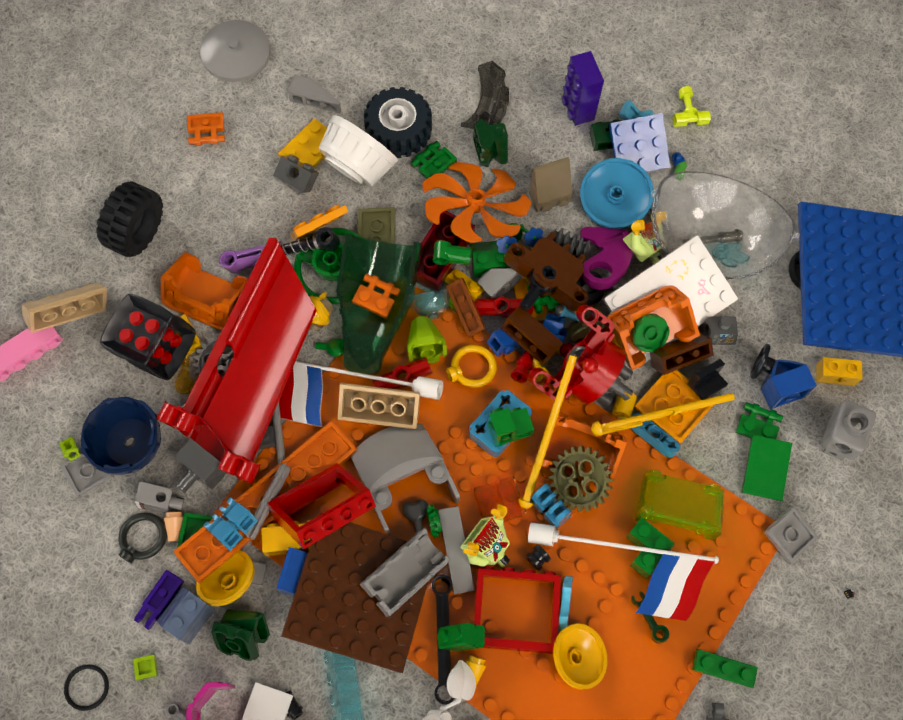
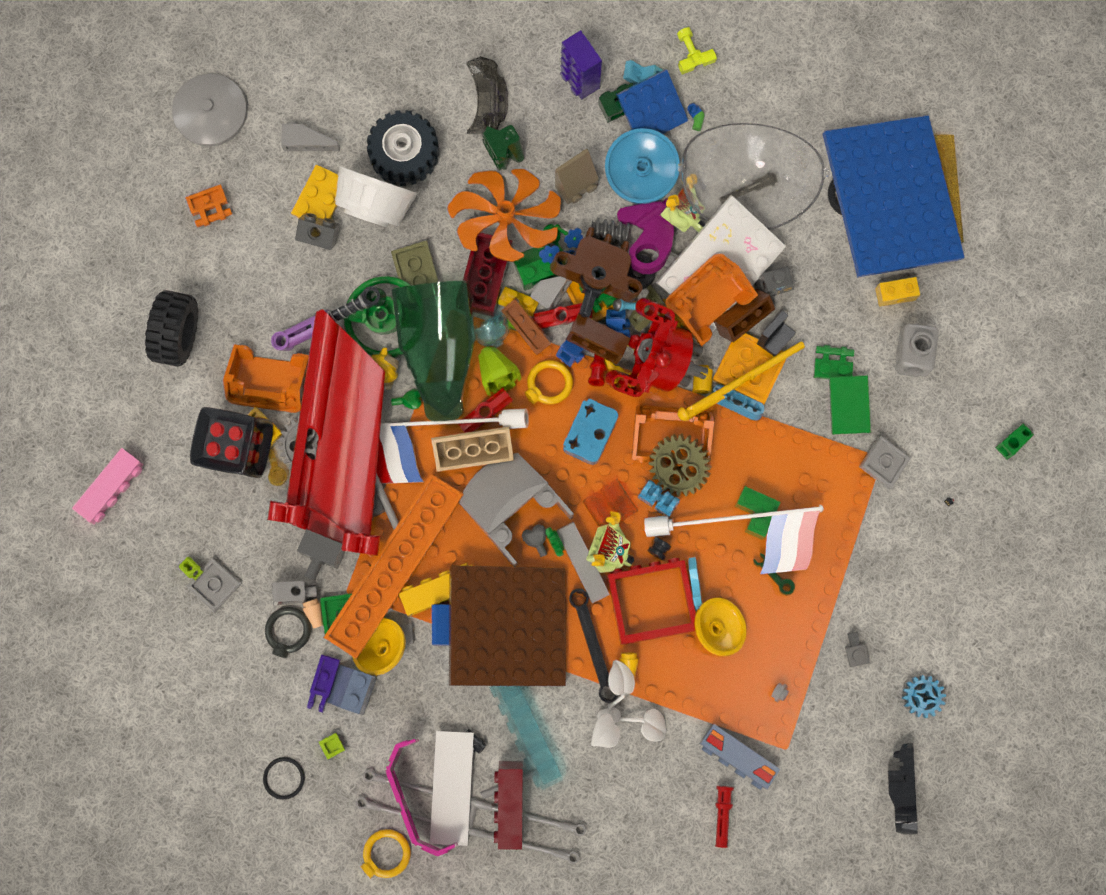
camera: 15 degrees left, 10 degrees up
(64, 307) = (137, 433): tan slope -> none
(110, 427) = (222, 543): dark blue piece -> none
(226, 531) = (369, 606): dark azure legs -> none
(240, 633) = (409, 692): dark green piece -> none
(271, 493) = (396, 567): light grey axle -> none
(318, 221) = (357, 280): light orange plate -> none
(328, 521) = (433, 545): red window -> none
(374, 301) = (436, 345): orange plate -> none
(404, 572) = (543, 597): light grey piece -> none
(437, 164) = (454, 182): green plate -> none
(446, 253) = (494, 278): green piece -> none
(461, 637) = (610, 640): green brick -> none
(509, 425) = (601, 434): green brick -> none
(525, 502) = (634, 500): yellow bar -> none
(650, 332) = (710, 305): green tile -> none
(681, 504) = (777, 462): clear neon green windscreen -> none
(724, 668) = (851, 600): green plate -> none
(730, 254) = (768, 200): clear light blue plate -> none
(785, 379) = (847, 317): blue piece -> none

